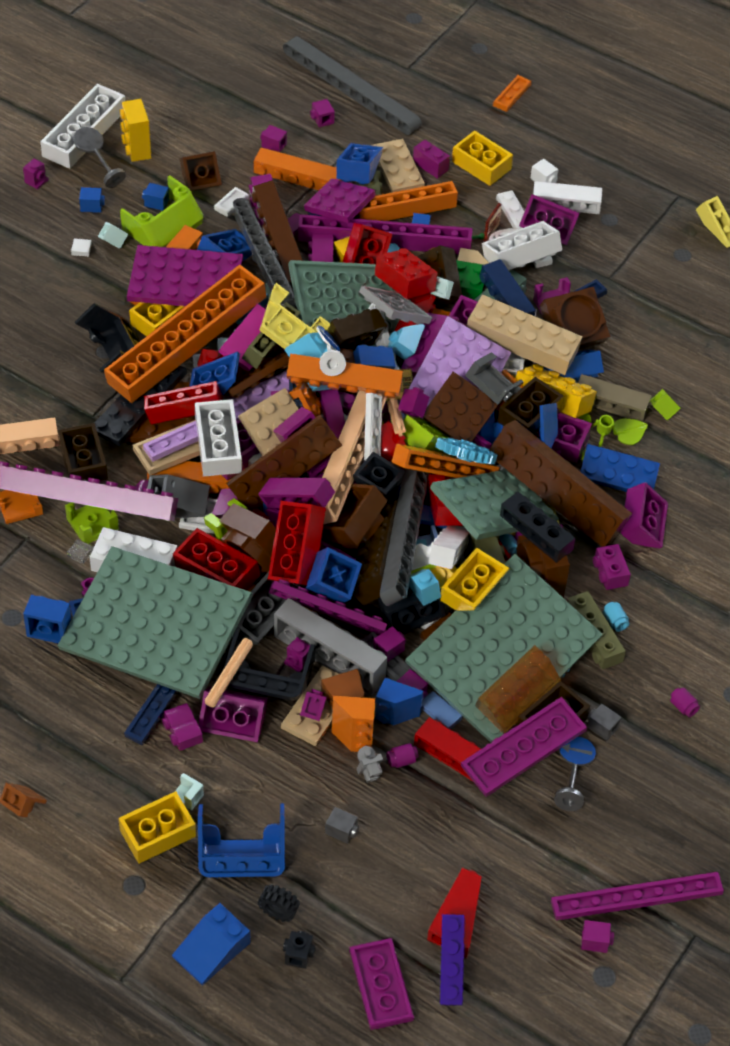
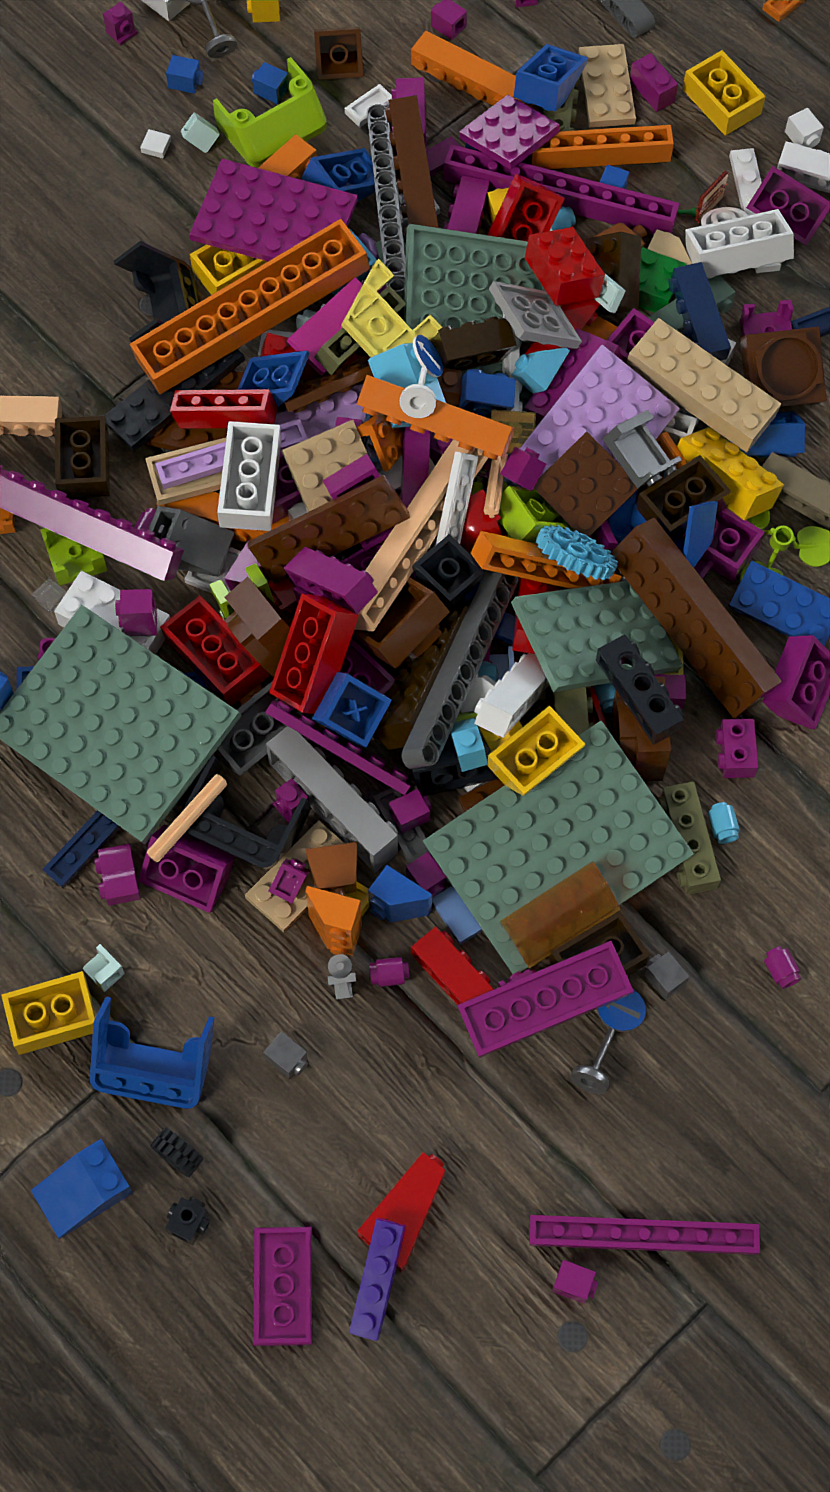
camera: 15 degrees right, 15 degrees up
(157, 541) = (137, 612): none -> magenta brick

